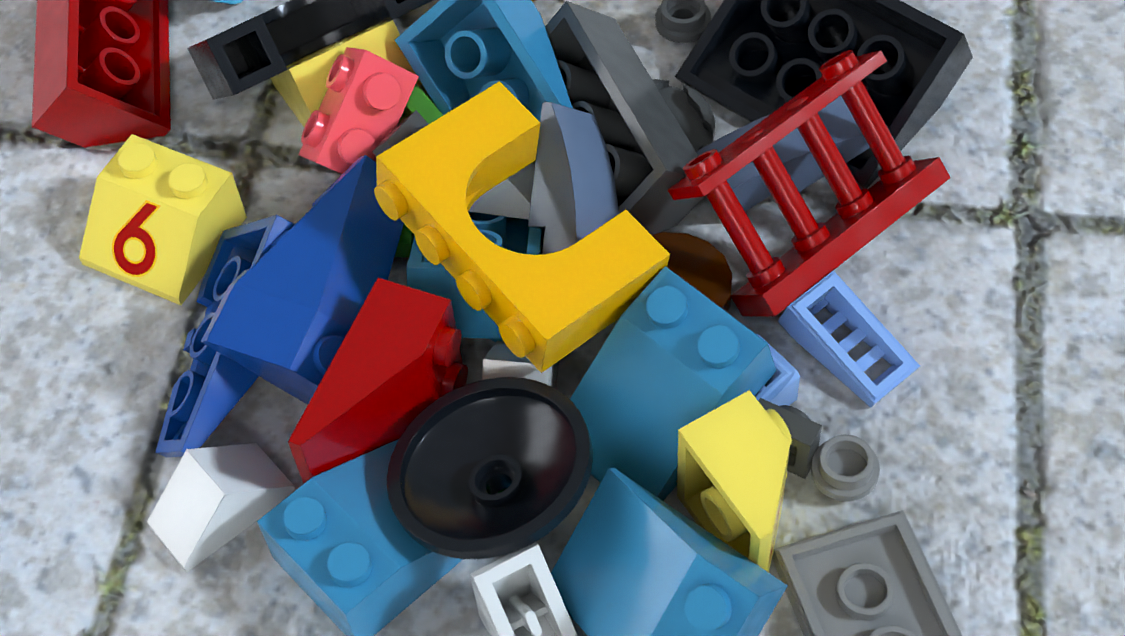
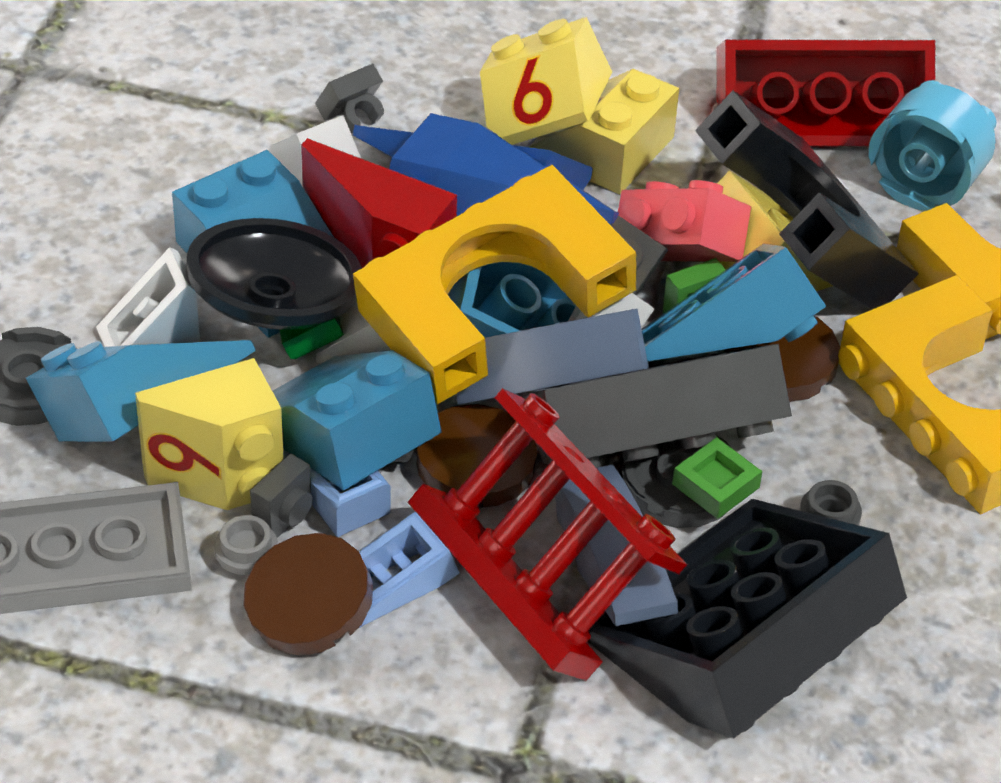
camera: 90 degrees right, 10 degrees down
(102, 480) = (350, 93): none -> dark grey tile
(122, 259) = (543, 80): none -> light yellow slope
(689, 78) = (717, 477): none -> bright green plate
(902, 394) = (308, 593): none -> reddish brown tile

